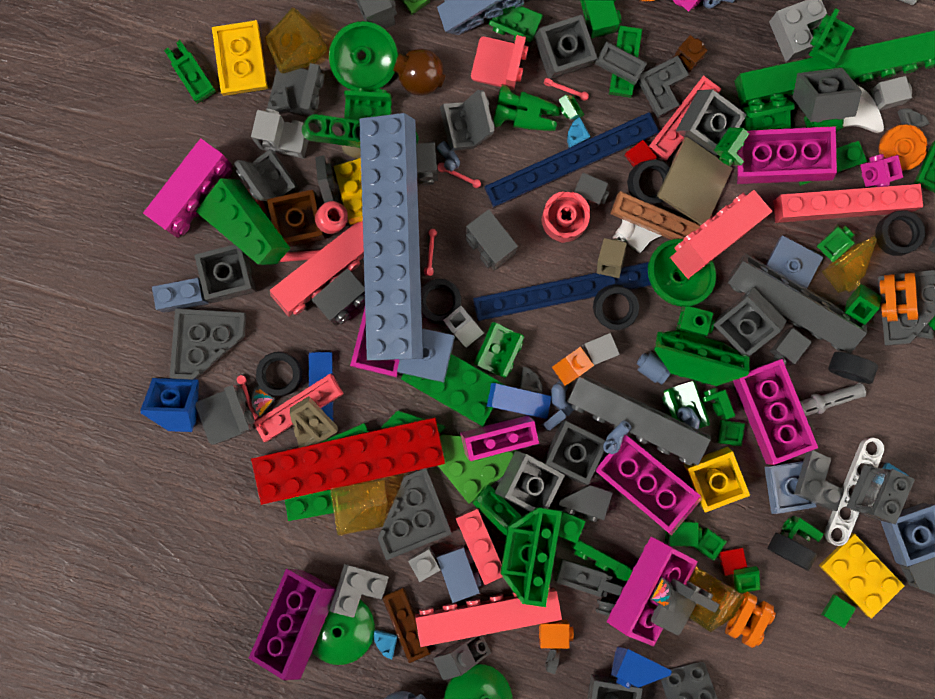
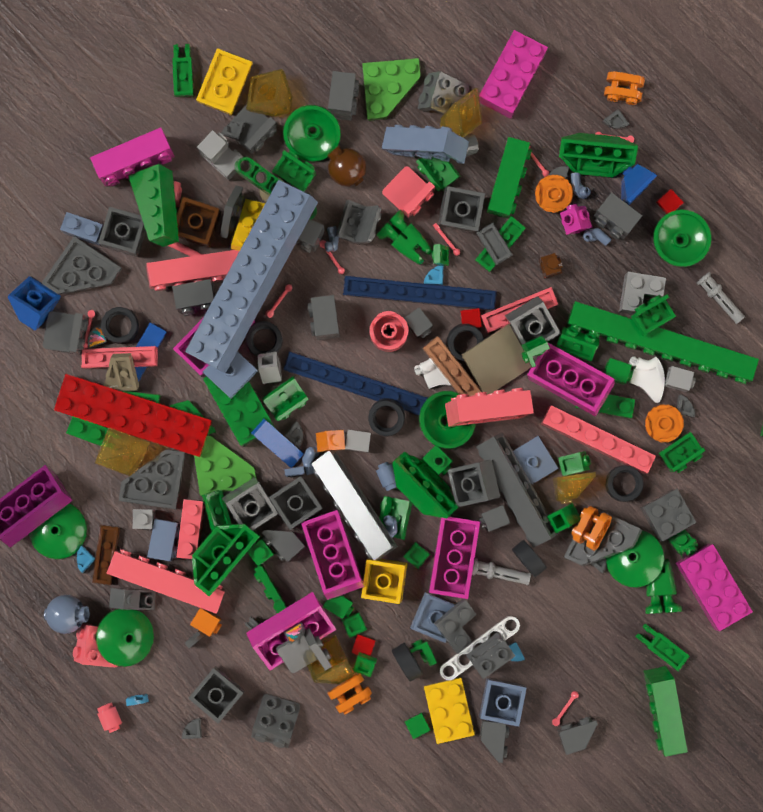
camera: 30 degrees right, 0 degrees up
(266, 176) = (192, 180): dark grey bracket -> none
(336, 212) = (227, 236): coral head -> none
(352, 585) = (86, 503): plate -> none
(499, 438) = (247, 460): dark pink brick -> none
(586, 579) = (251, 597): dark grey hinge -> none
(611, 257) = (404, 380): dark tan brick -> none
(614, 439) = (327, 508): sand blue arm -> none
(635, 669) = (247, 677): blue slope -> none
(657, 85) = (515, 271): dark grey plate -> none
(722, 403) = (420, 532): green bracket -> none
(826, 94) = (624, 352): dark grey brick -> none
(881, 170) = (635, 430): dark pink brick -> none

